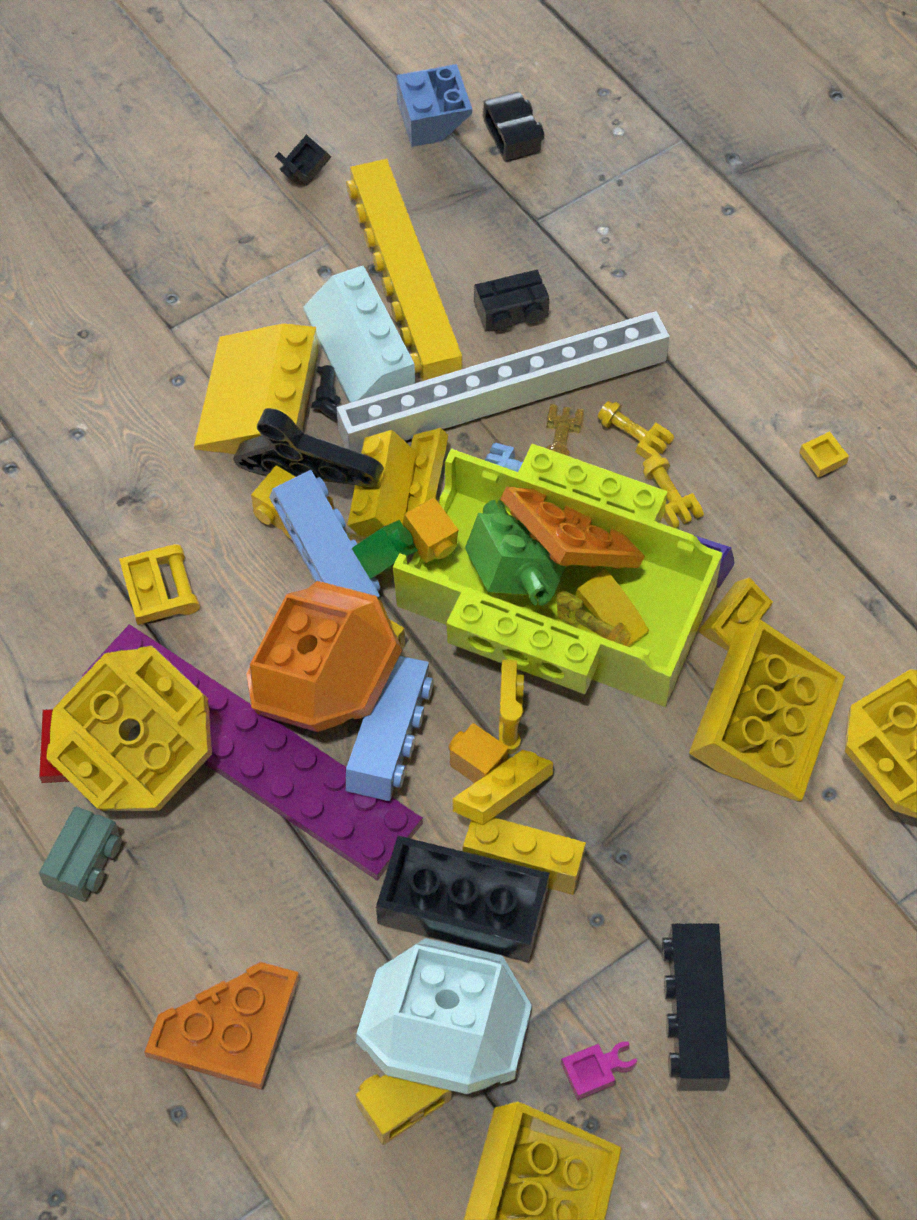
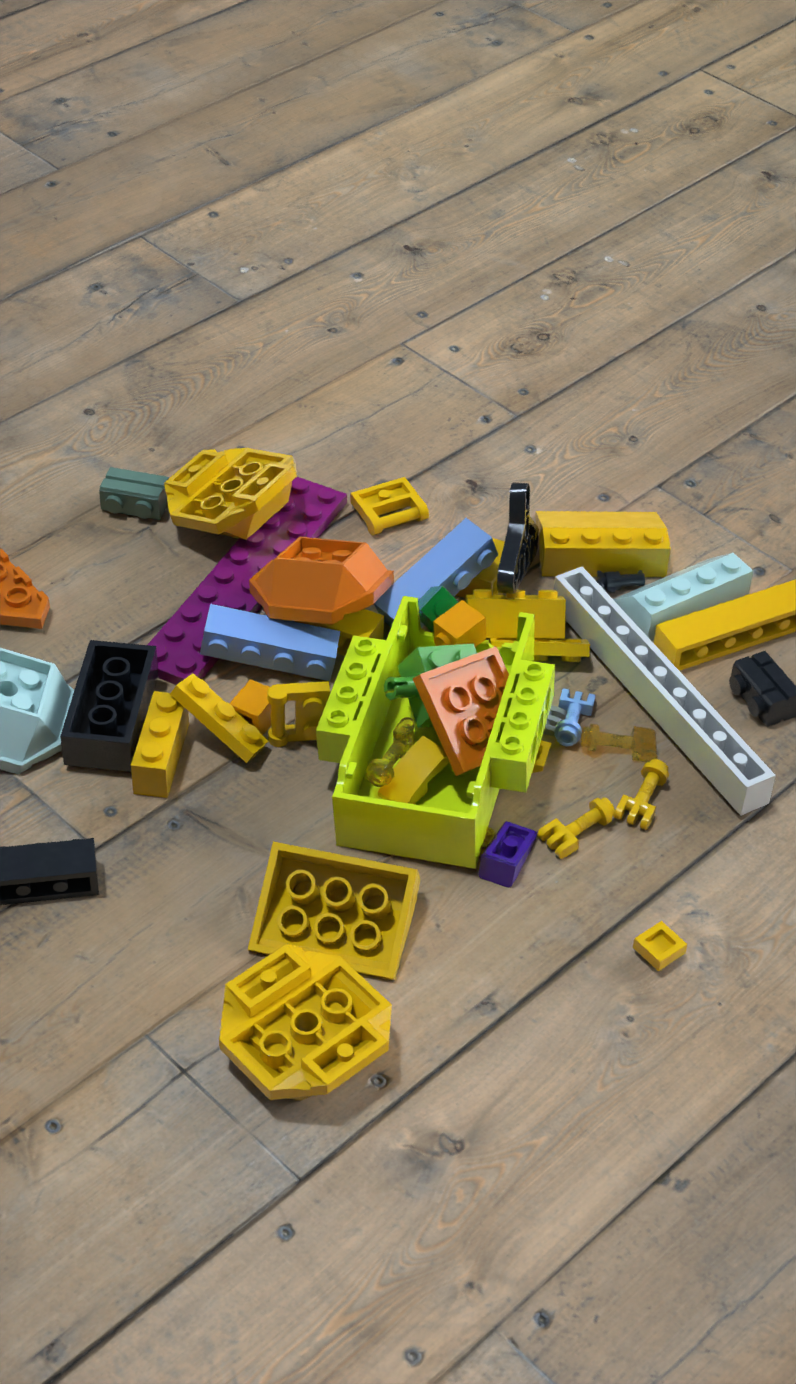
camera: 80 degrees right, 15 degrees down
(737, 609) = (450, 889): yellow slope -> none

